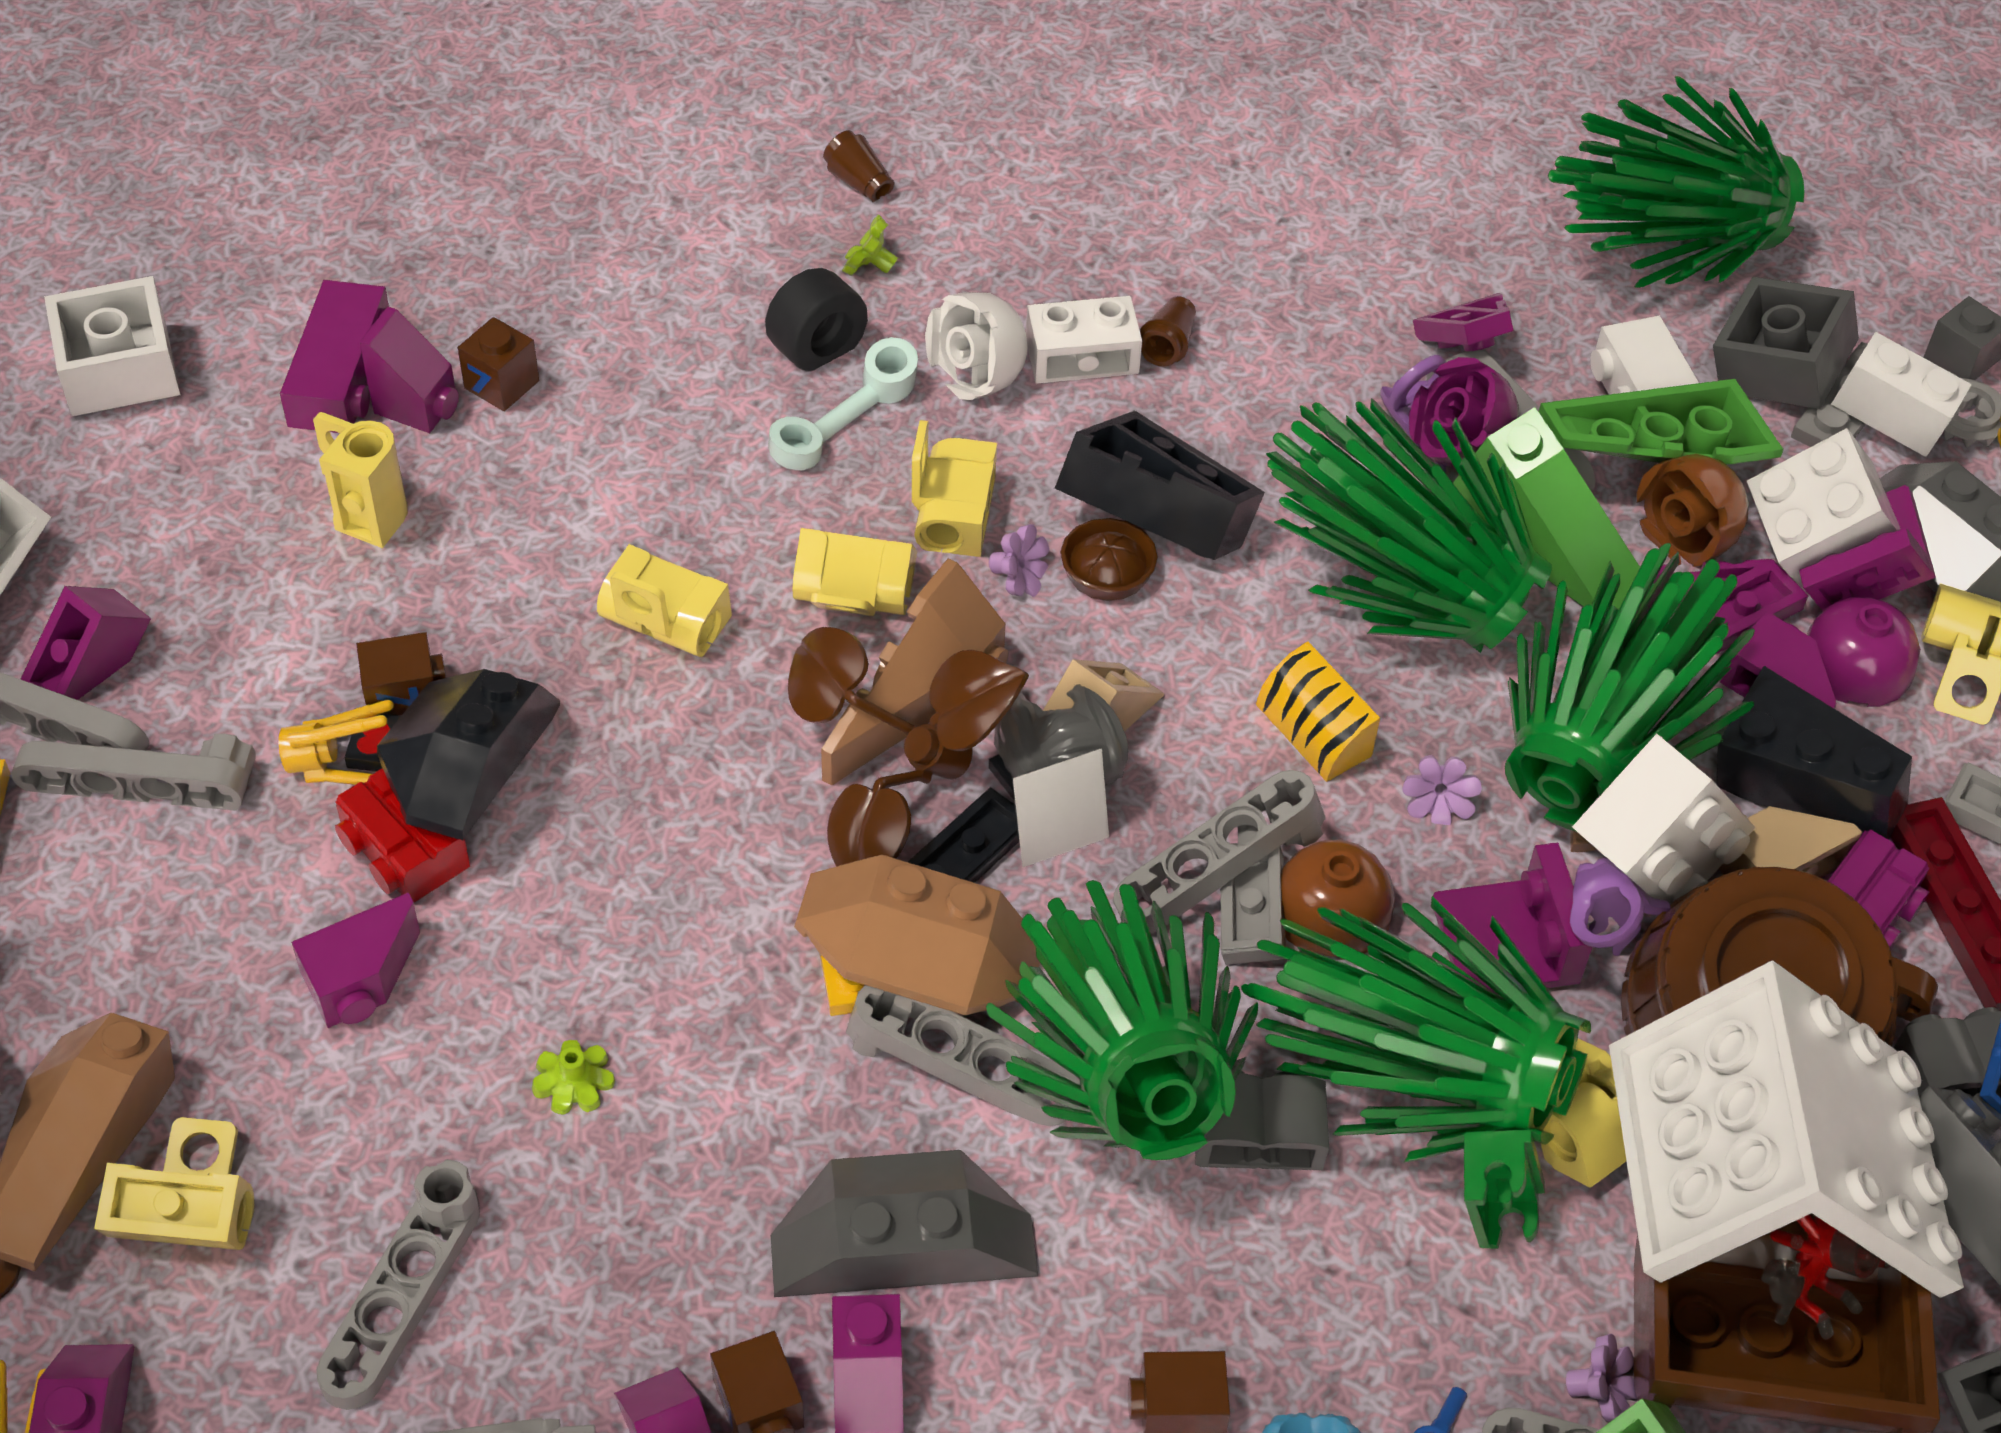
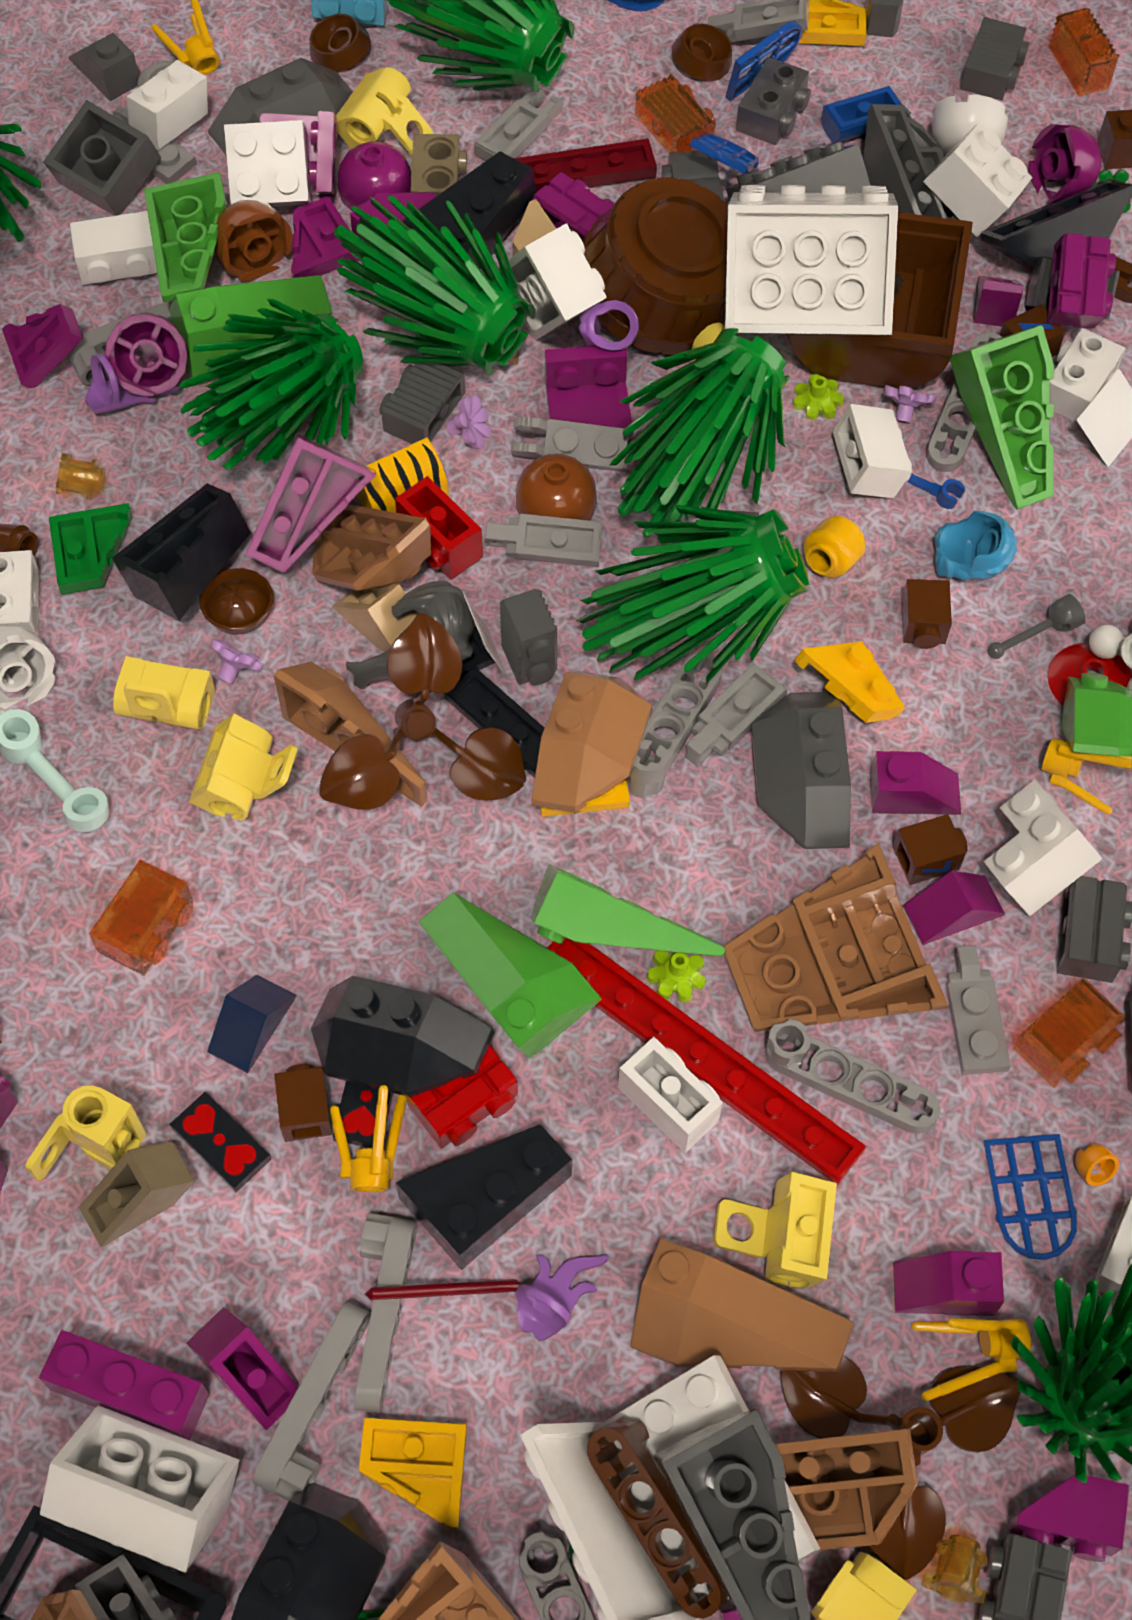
camera: 85 degrees left, 10 degrees up
(73, 538) = (124, 1384): none -> magenta brick
(130, 943) = (548, 1302): none -> medium lavender piece
(145, 825) = (443, 1289): none -> dark red axle
(259, 856) = (486, 1191): none -> black wedge
(306, 538) = (135, 1191): none -> dark tan slope
(358, 960) = (583, 1119): magenta slope -> none
(364, 610) = (220, 1142): none -> black tile
(376, 1050) = (670, 1094): none -> white brick
(443, 1112) = (729, 1073): none -> red tile
(520, 622) = (249, 1021): none -> dark blue slope
(545, 880) = (514, 977): none -> bright green wedge
(584, 1272) = (835, 954): none -> medium nougat wedge
(641, 956) = (589, 914): none -> bright green wedge
(643, 501) = (142, 918): none -> clear orange brick
(665, 601) = (248, 905): light yellow piece -> none
(988, 1133) = (732, 714): none -> light grey hinge
(1050, 1290) = (854, 679): none -> yellow wing
(1060, 853) = (529, 637): none -> dark grey brick
(1180, 401) = (85, 545): none -> green wing
(1187, 674) = (370, 548): none -> medium nougat wedge
(1241, 749) = (453, 534): none -> red brick
(1244, 582) = (305, 501): none -> magenta wedge
(1273, 382) = (79, 476): none -> clear yellow brick
(1290, 1264) = (834, 546): none -> yellow head
(1294, 819) = (529, 547): light grey beam -> none
(1419, 888) = (588, 443): none -> light grey hinge
(1459, 723) = (422, 401): none -> dark grey brick
(1478, 1314) = (872, 451): none -> white brick
(1501, 1179) = (801, 427): green hinge -> none
(1593, 1255) = (818, 397): none -> lime plant
(1903, 710) = (436, 162): none -> dark tan brick

